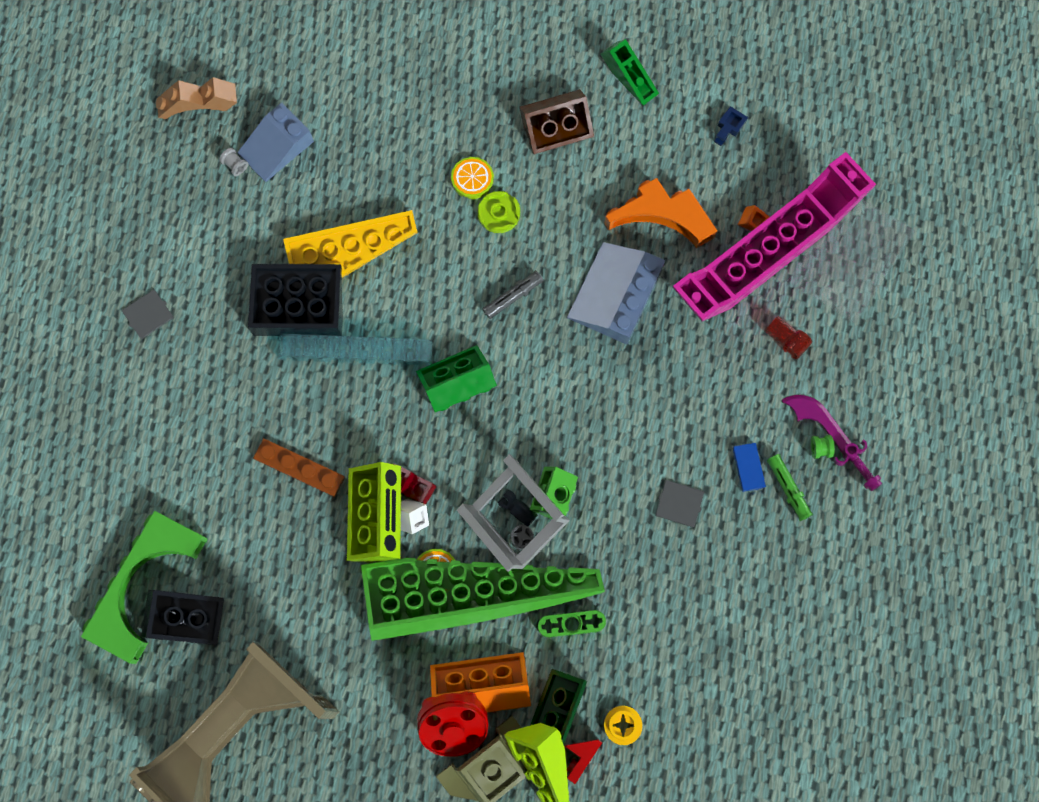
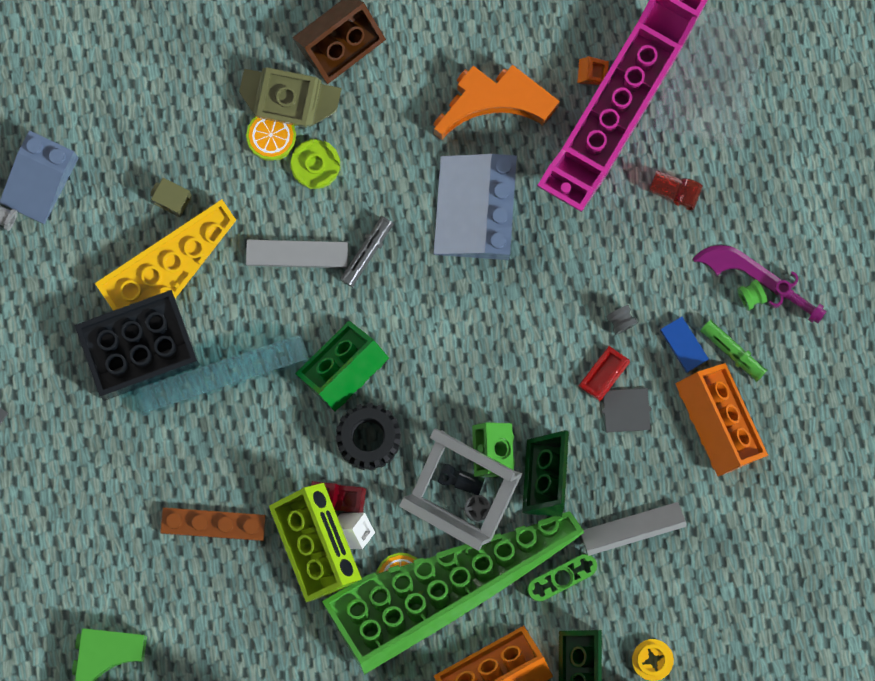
camera: 25 degrees left, 5 degrees up
(372, 195) = (170, 197): none -> olive brick
(455, 276) = (297, 254): none -> light grey tile
(460, 461) = (358, 416): none -> black tyre
(499, 151) = (288, 96): none -> olive piece
(590, 530) = (545, 474): none -> dark green slope
(648, 605) = (633, 528): none -> light grey tile
(672, 466) = (604, 373): none -> red tile
(703, 426) = (621, 319): none -> dark grey wheel
(758, 541) = (721, 419): none -> orange slope

